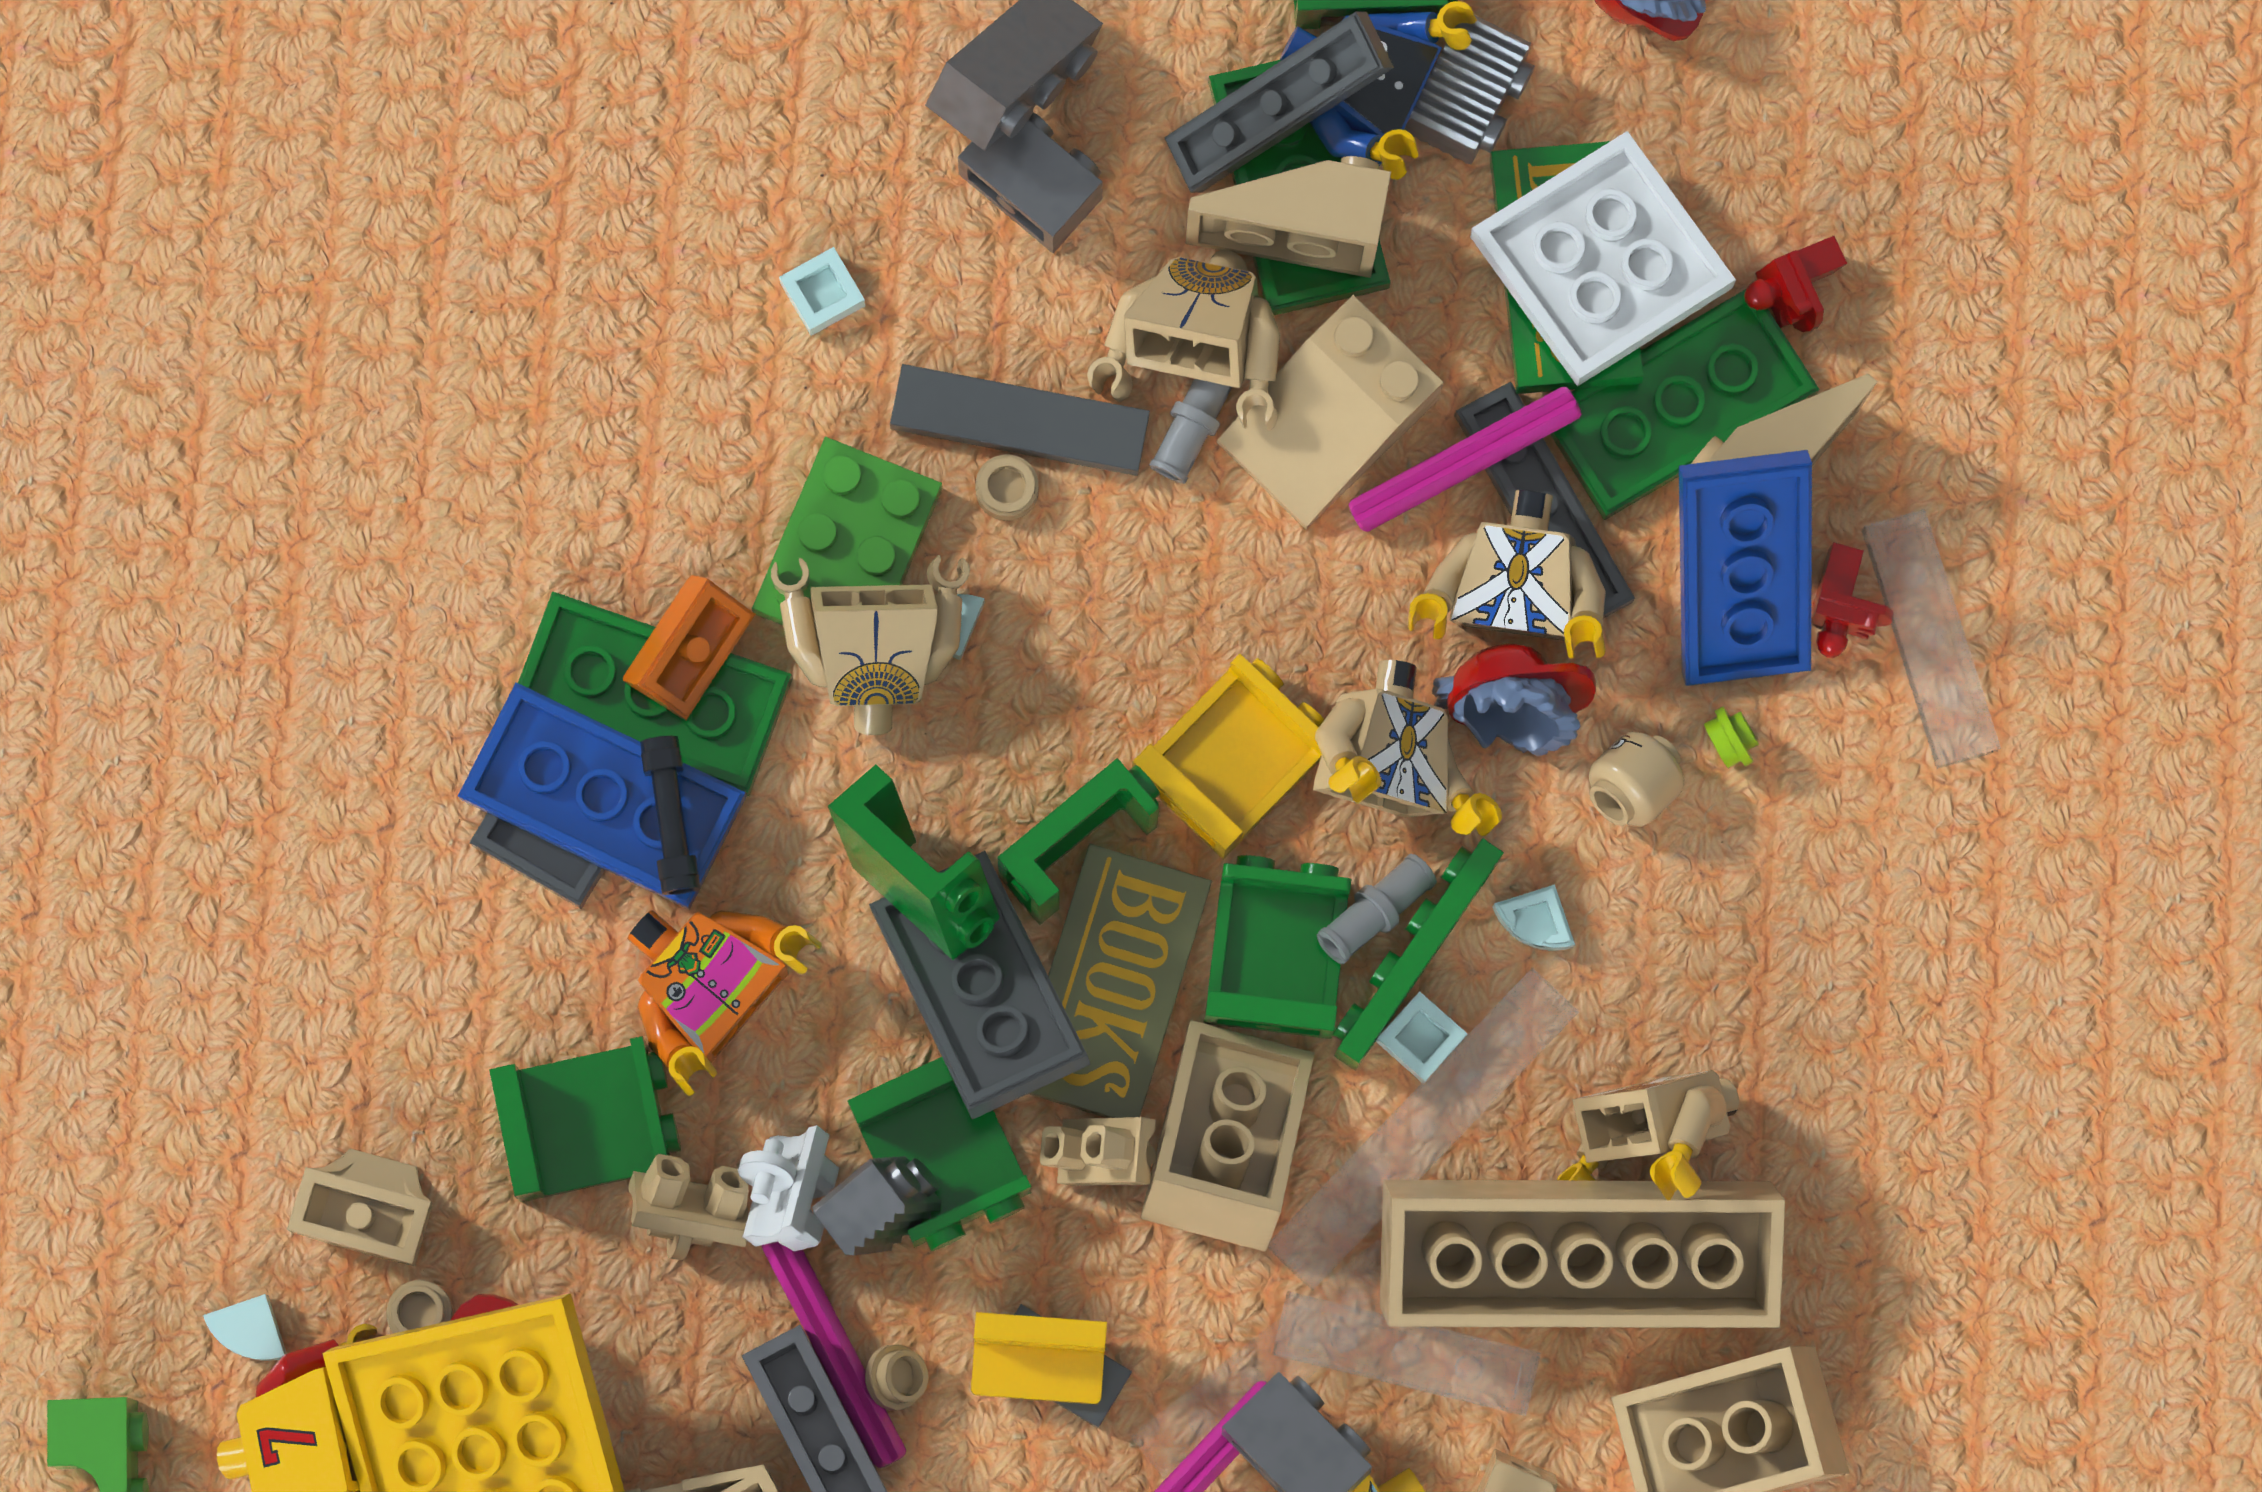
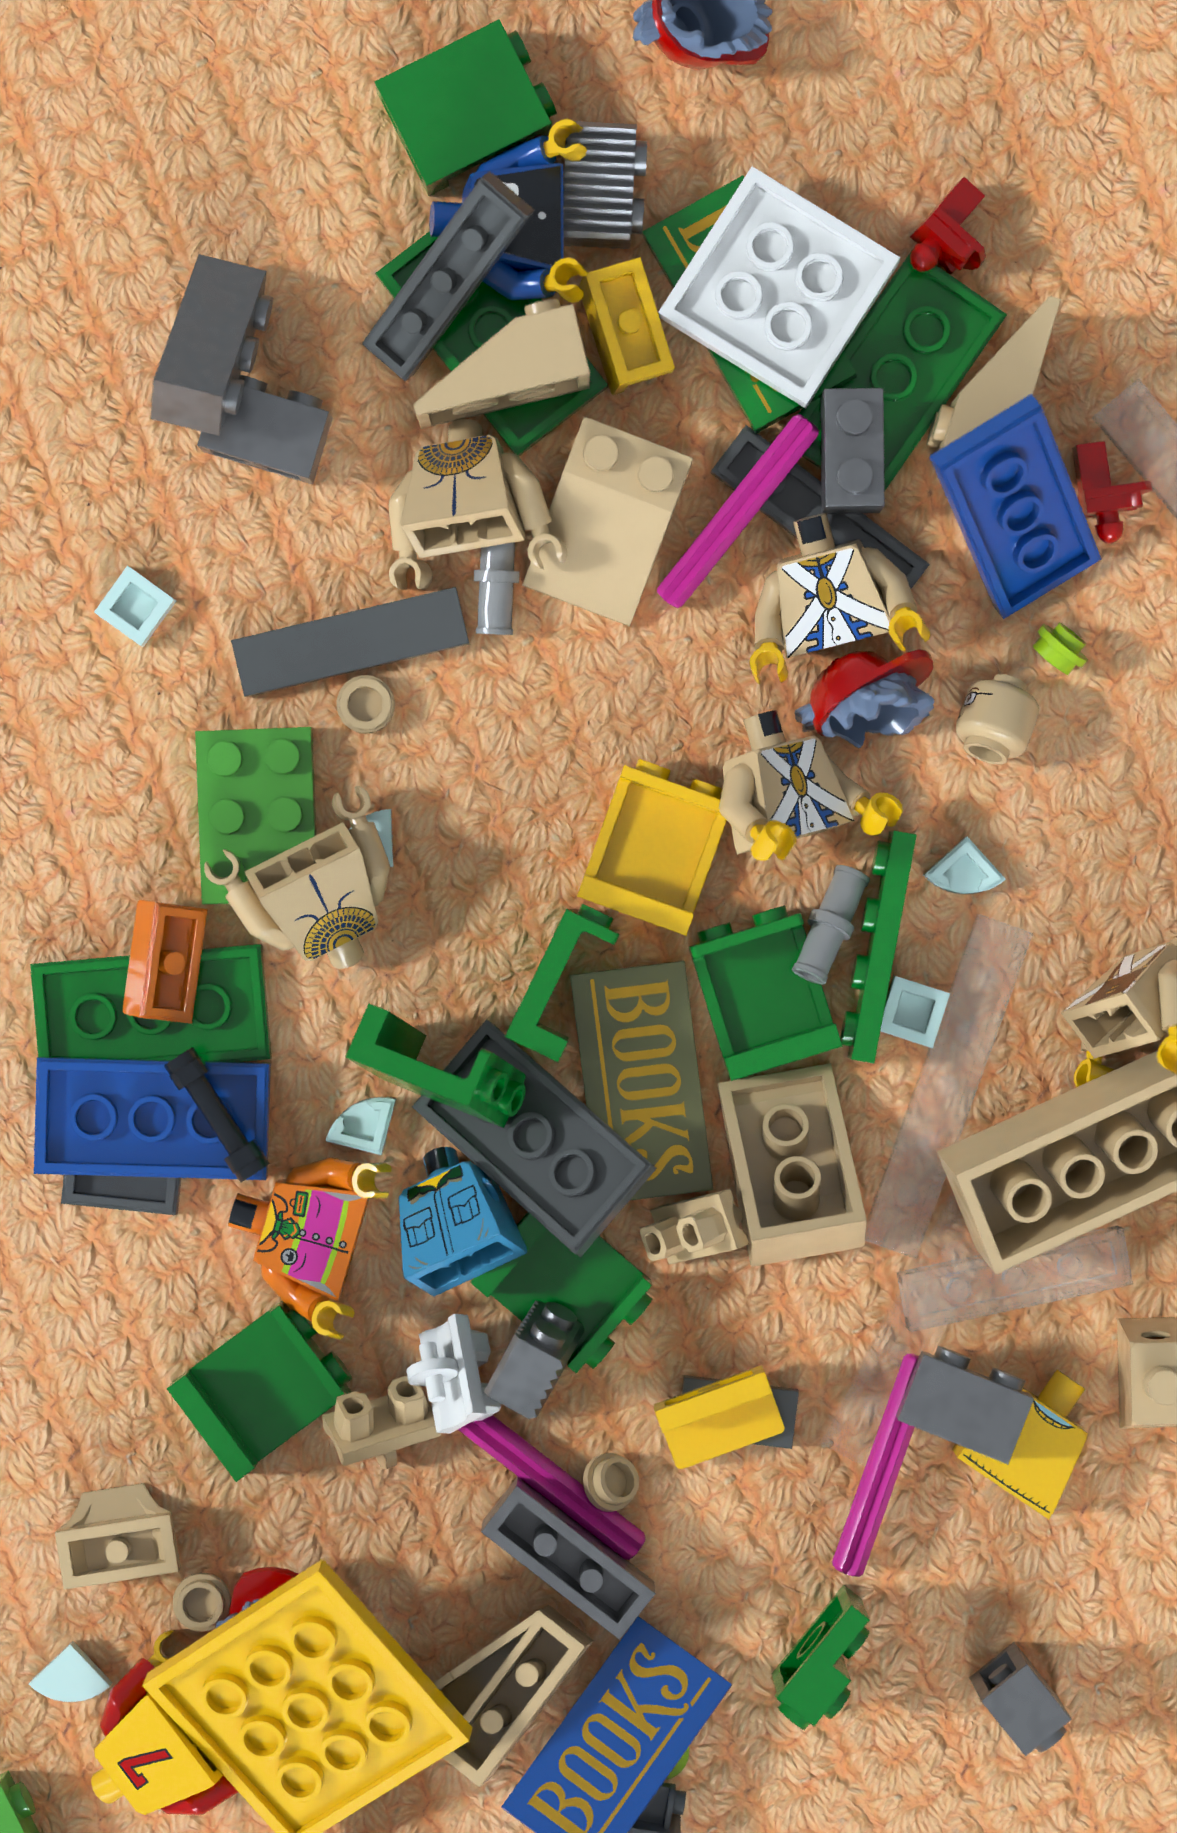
camera: 20 degrees left, 10 degrees up
(811, 902) = (364, 1125): none -> light aqua tile
(857, 1036) = (454, 1224): none -> dark azure torso
(1434, 228) = (625, 324): none -> yellow panel
(1605, 447) = (852, 451): none -> flat silver brick

